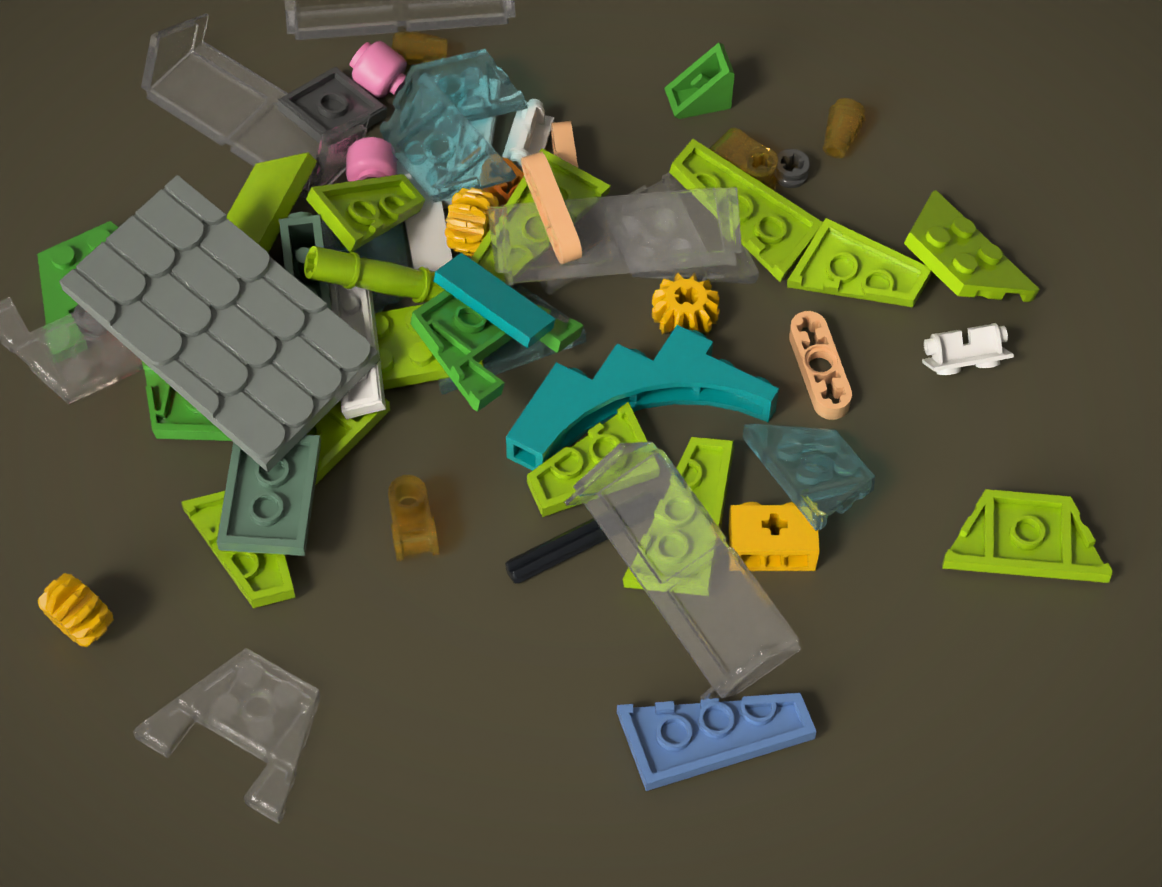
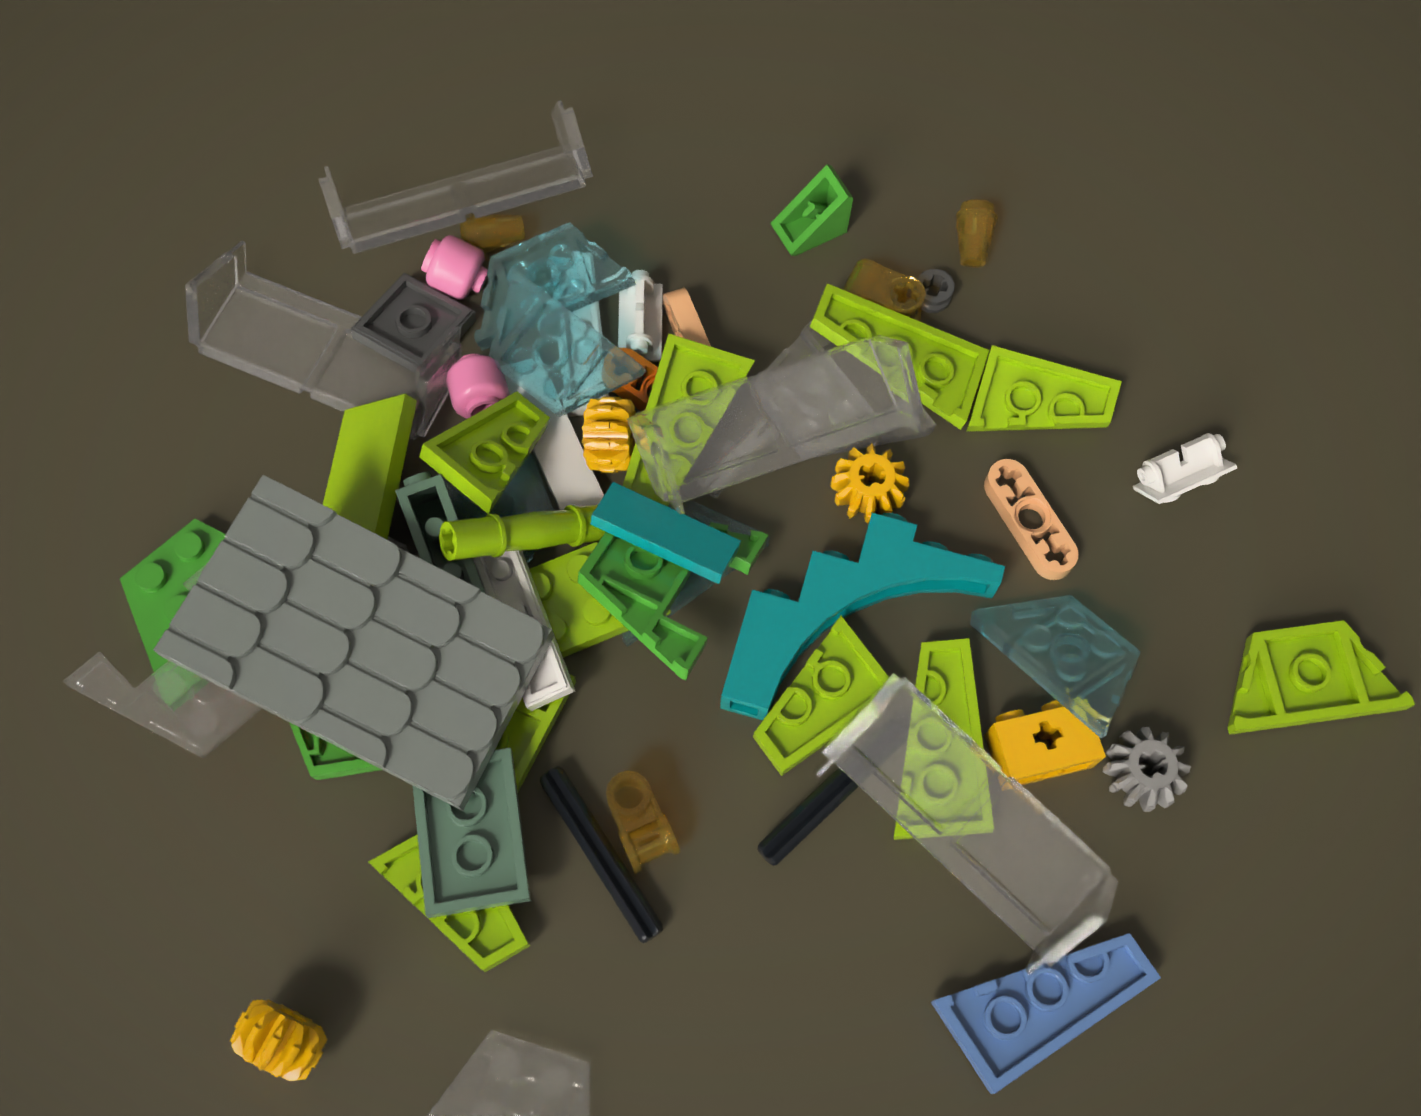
camera: 15 degrees left, 10 degrees up
(373, 542) = (601, 854): none -> black axle
(551, 207) = (702, 407): light nougat beam -> none
(856, 575) = (1163, 762): none -> light grey gear
(963, 255) = (1144, 356): lime wing -> none

